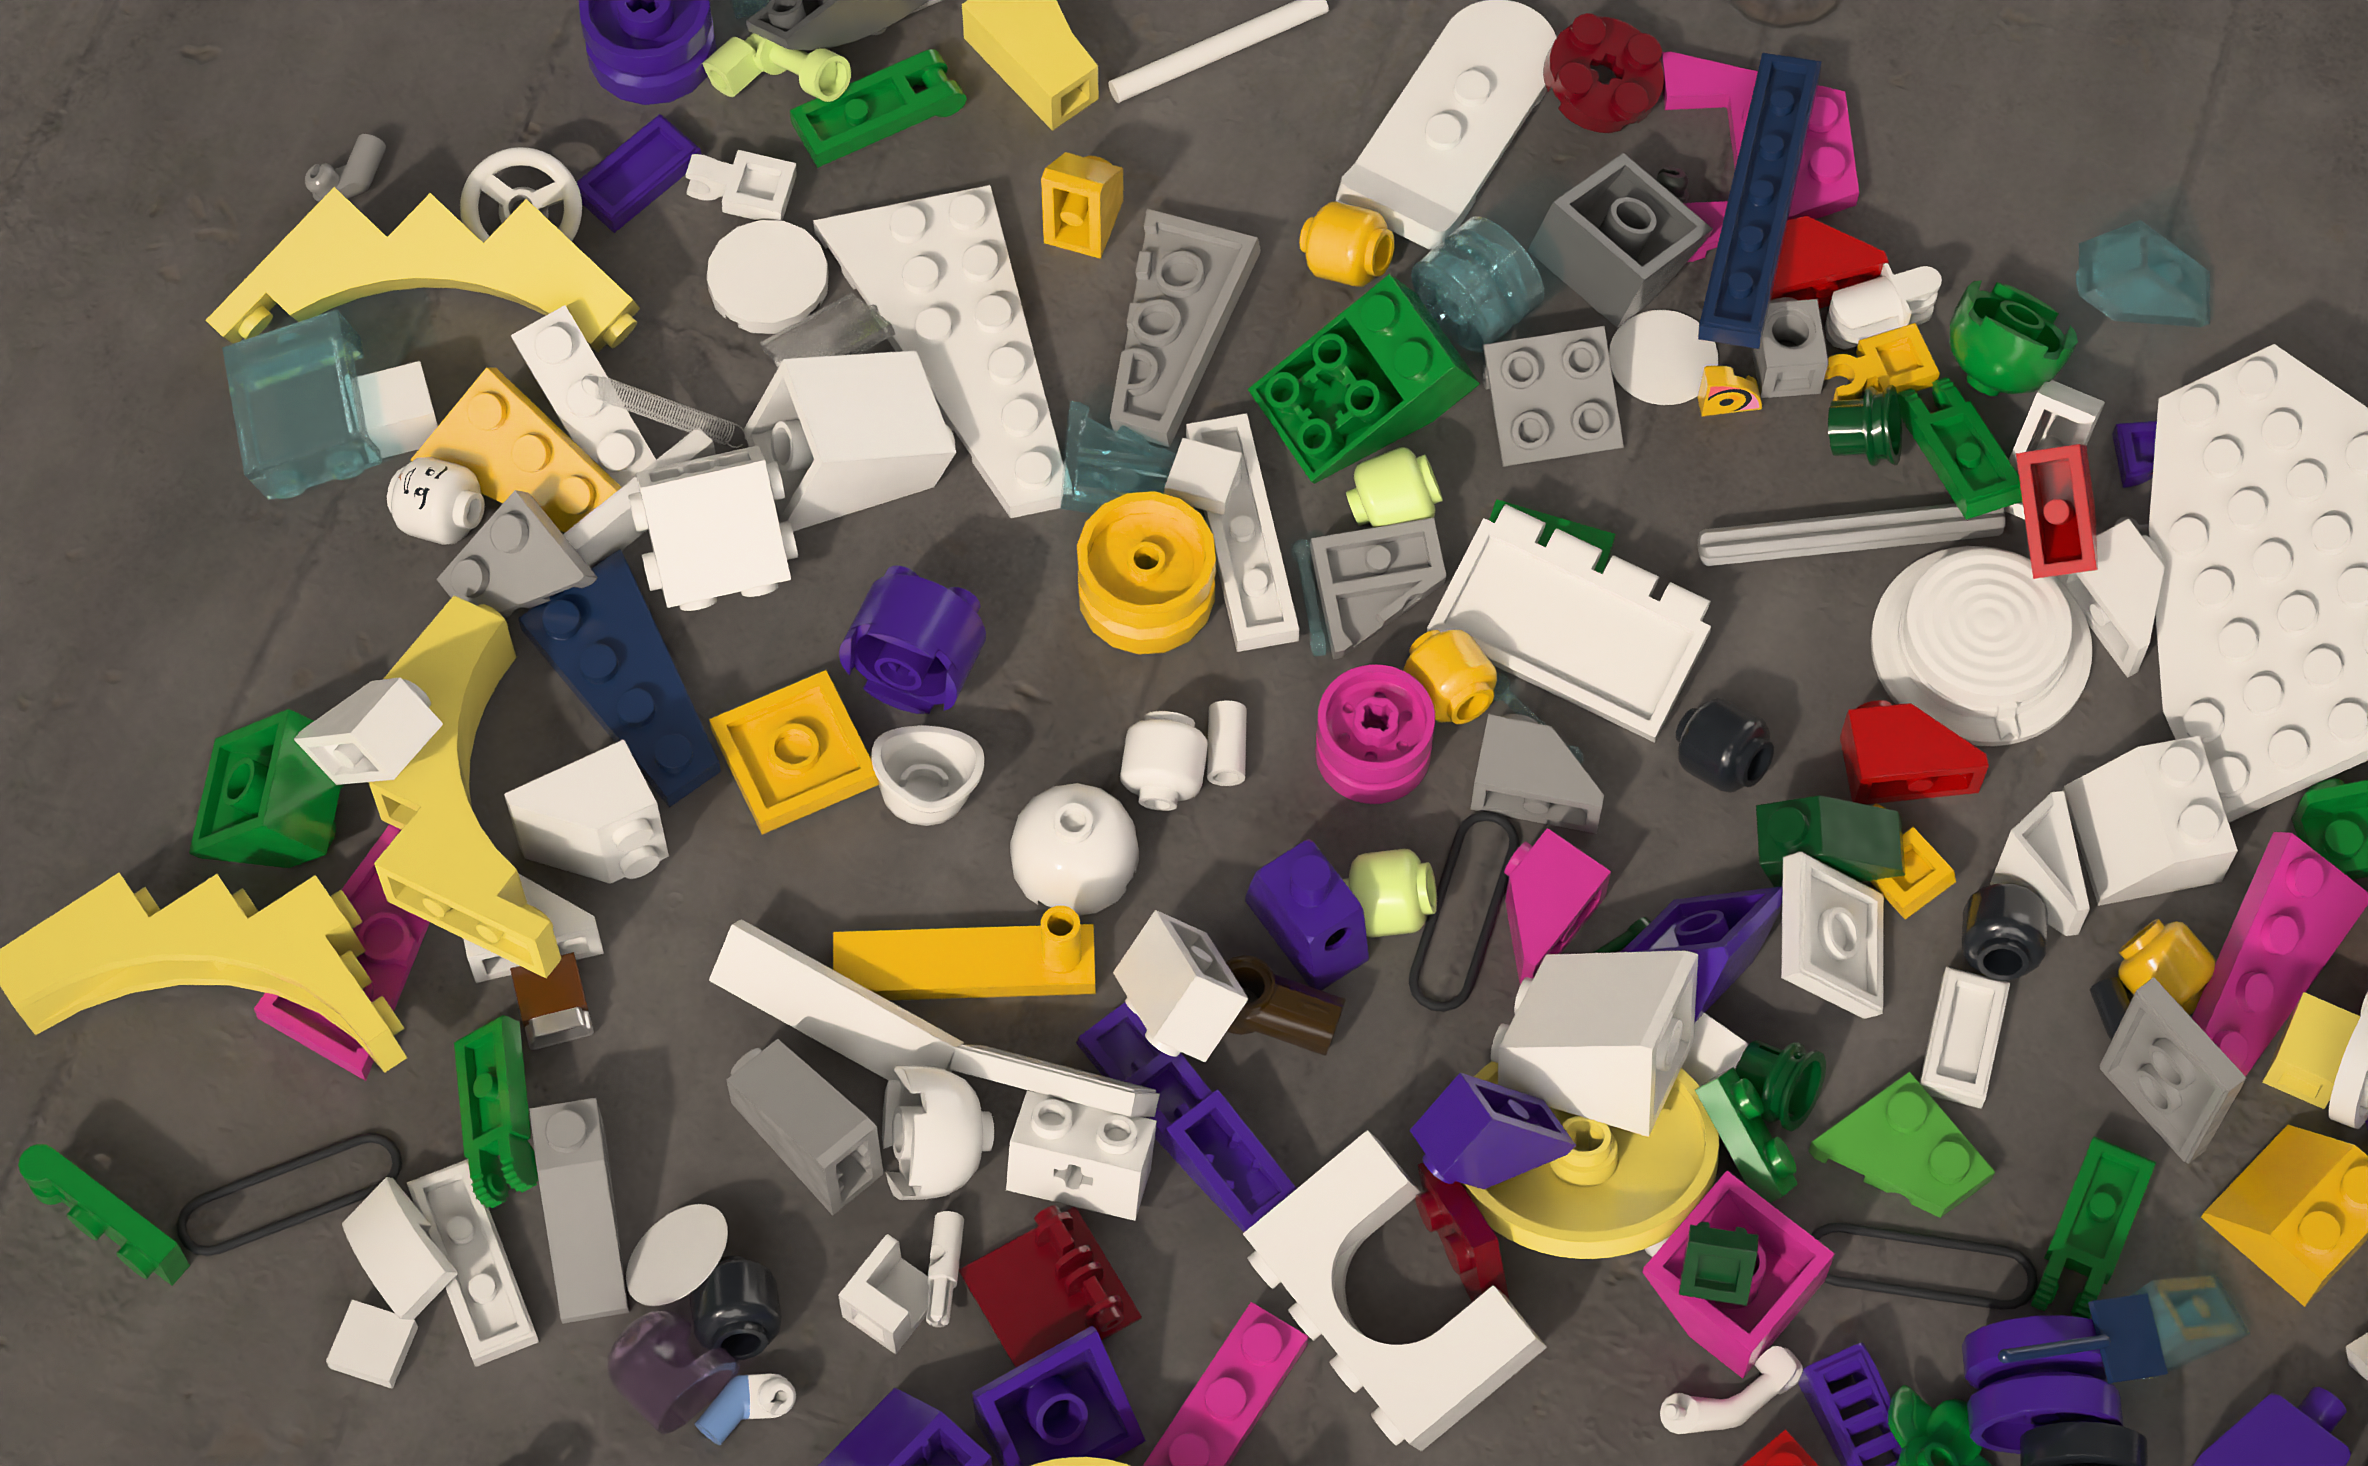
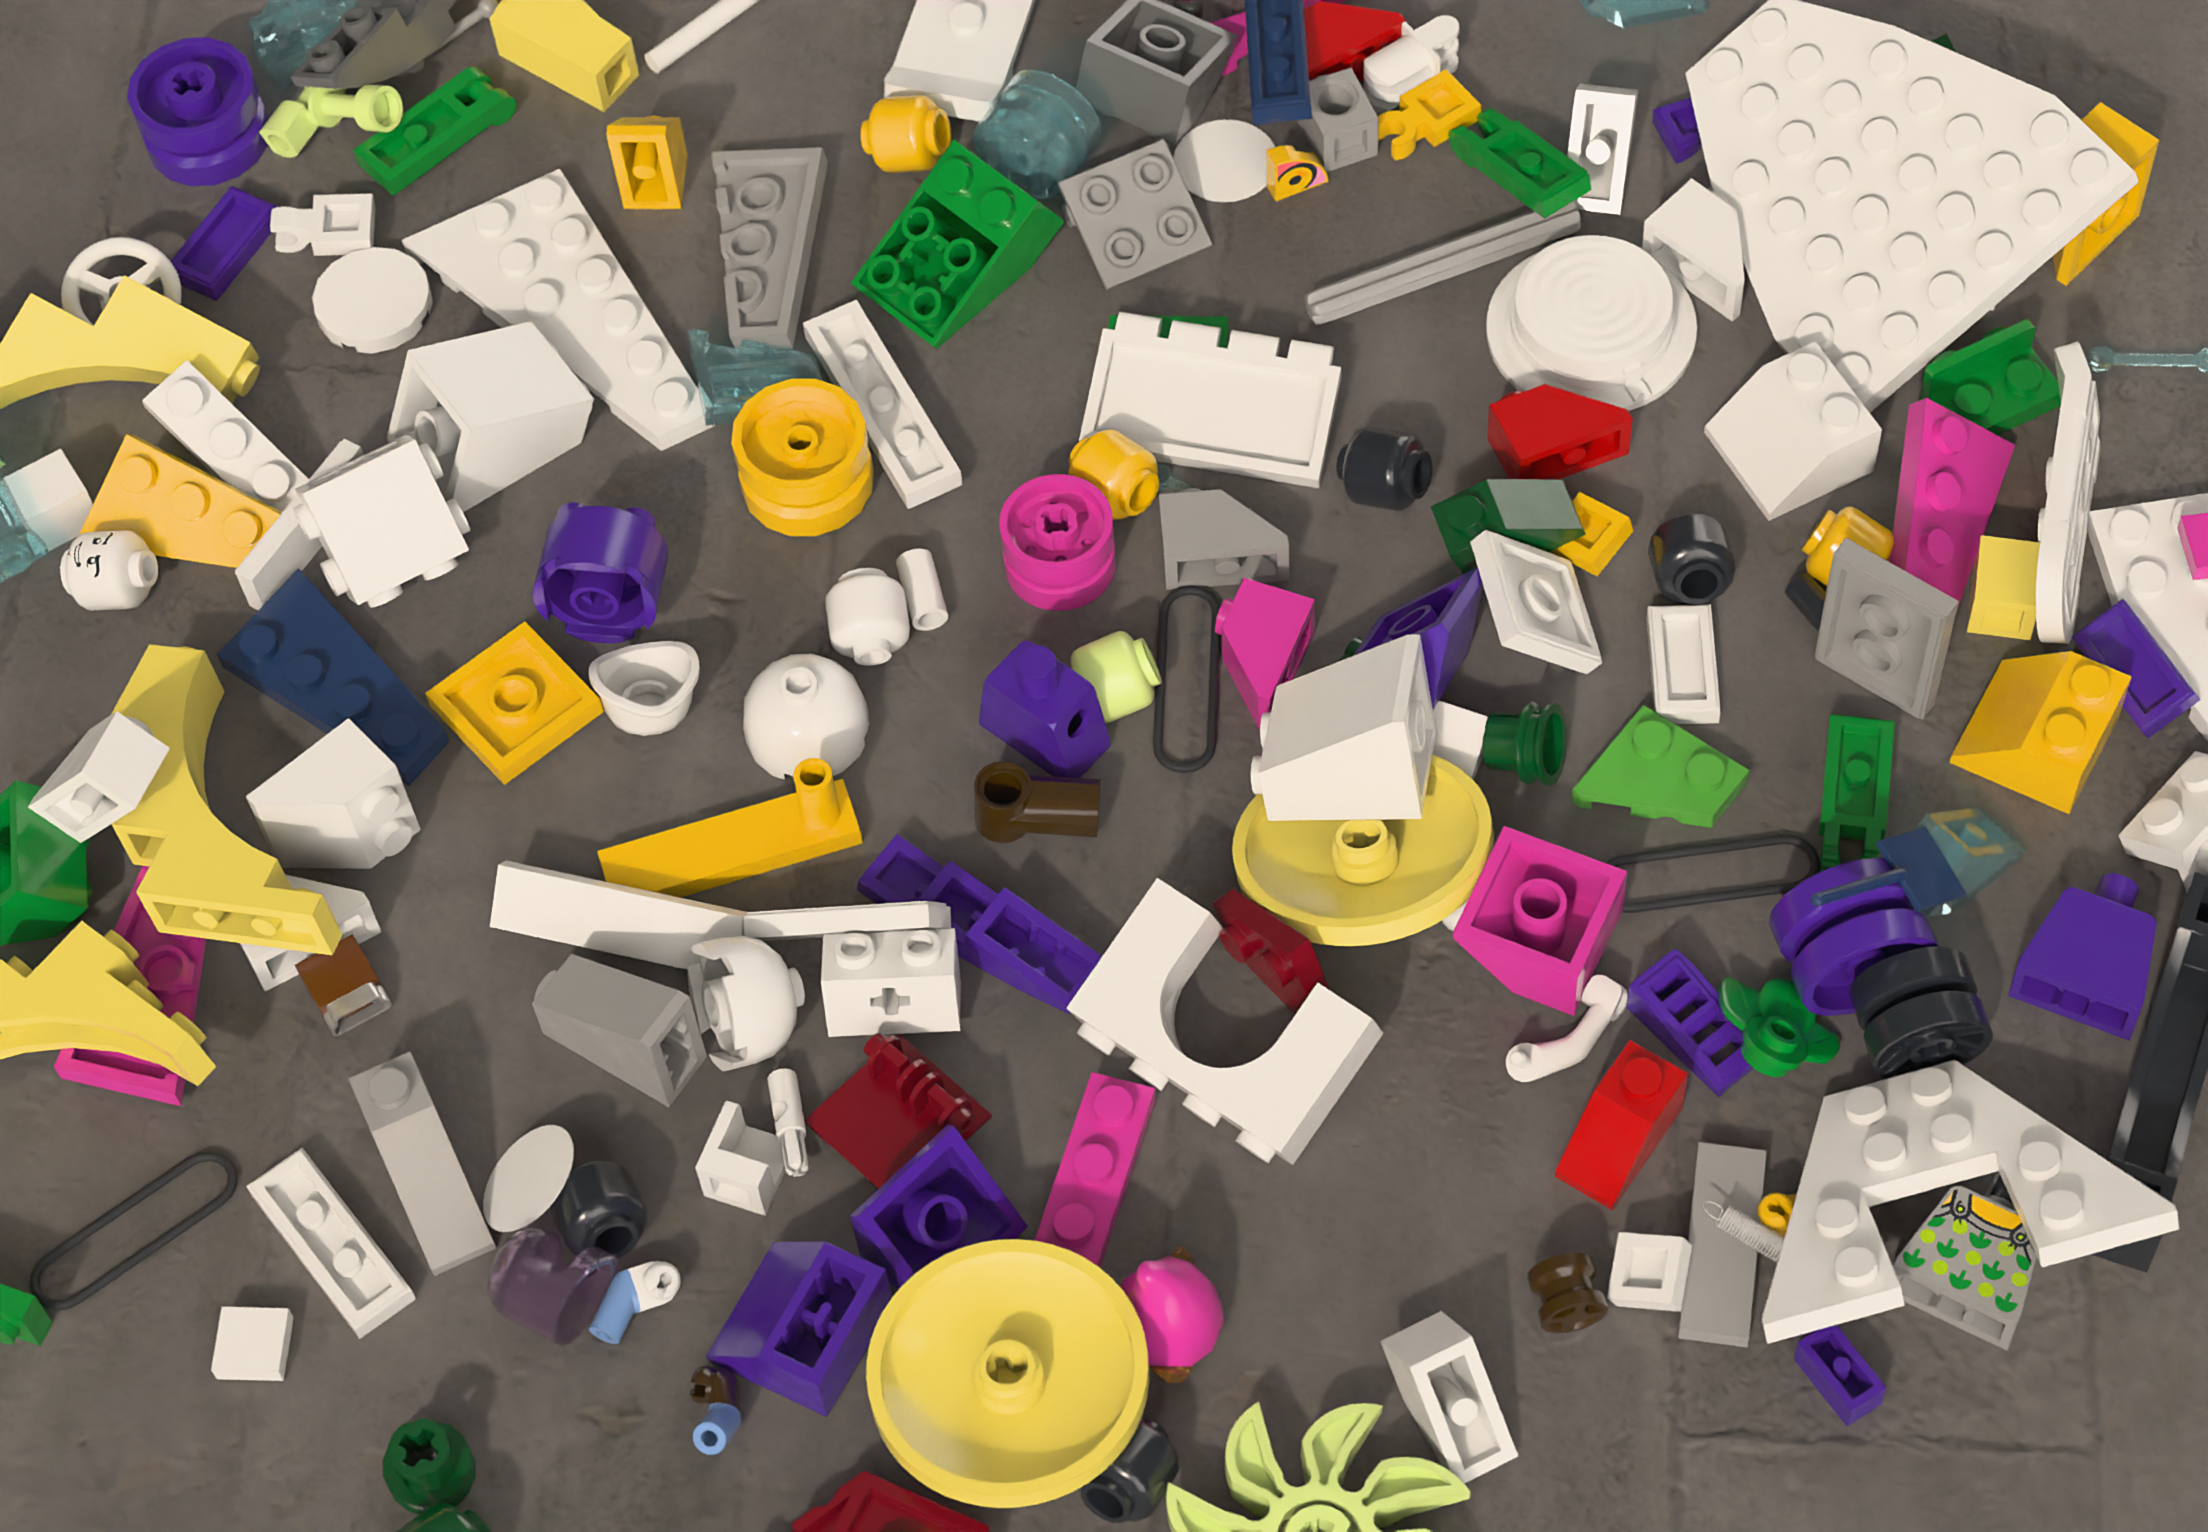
camera: 10 degrees left, 5 degrees down
(396, 1251) = (255, 1247): white slope -> none
(495, 1111) = (315, 1096): green hinge -> none
(516, 560) = (201, 599): light grey wing -> none
(656, 414) = (300, 425): white piece -> none
(835, 330) = (453, 320): clear piece -> none
(1179, 987) = (941, 805): white brick -> none
(1204, 475) = (833, 357): white tile -> none
(1301, 553) = (943, 408): clear light blue hinge -> none
(1374, 578) = (1017, 411): light grey wing -> none
(1394, 489) = (1013, 332): yellowish green head -> none
(1488, 1133) = (1270, 851): dark purple slope -> none
(1718, 1264) = (1523, 904): dark green tile -> none
(1736, 1113) = (1494, 776): green plate -> none
(1867, 426) = (1429, 166): dark green piece -> none
(2007, 340) = (1533, 61): green cylinder -> none
(2046, 861) = (1710, 485): white slope -> none
(2058, 510) = (1626, 182): slope -> none

